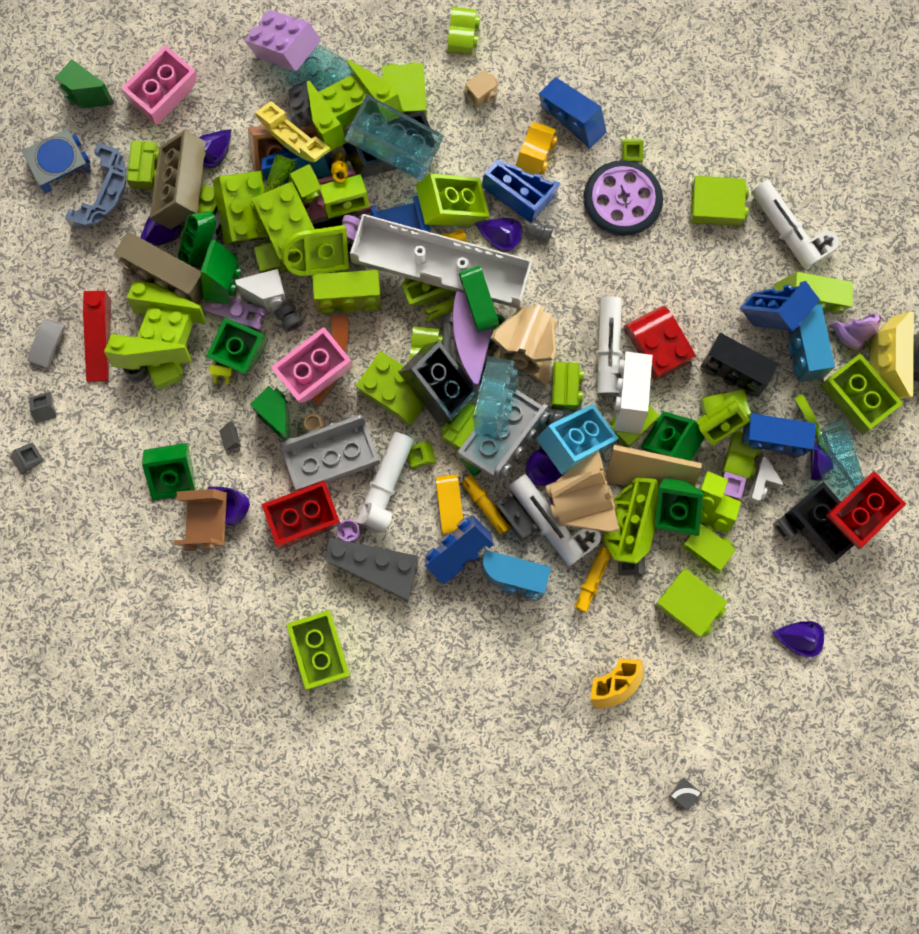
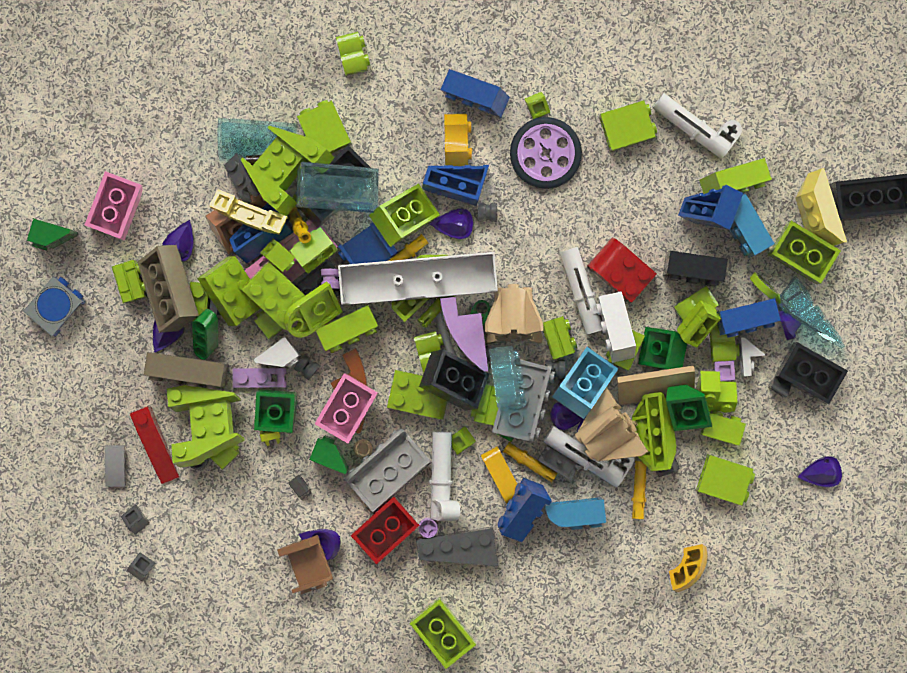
camera: 20 degrees left, 10 degrees up
(109, 194) = (113, 318): sand blue windscreen -> none
(168, 470) = (262, 533): green slope -> none
(219, 274) = (237, 355): green slope -> none
(279, 172) = (252, 248): clear neon green slope -> none
(282, 40) = (203, 127): lavender piece -> none
(478, 298) = (462, 301): green beam -> none
(482, 88) = (389, 100): tan brick -> none
(685, 794) = (773, 631): dark grey tile -> none
(856, 332) = (782, 197): lavender hair -> none
(865, 510) = (838, 357): red brick -> none

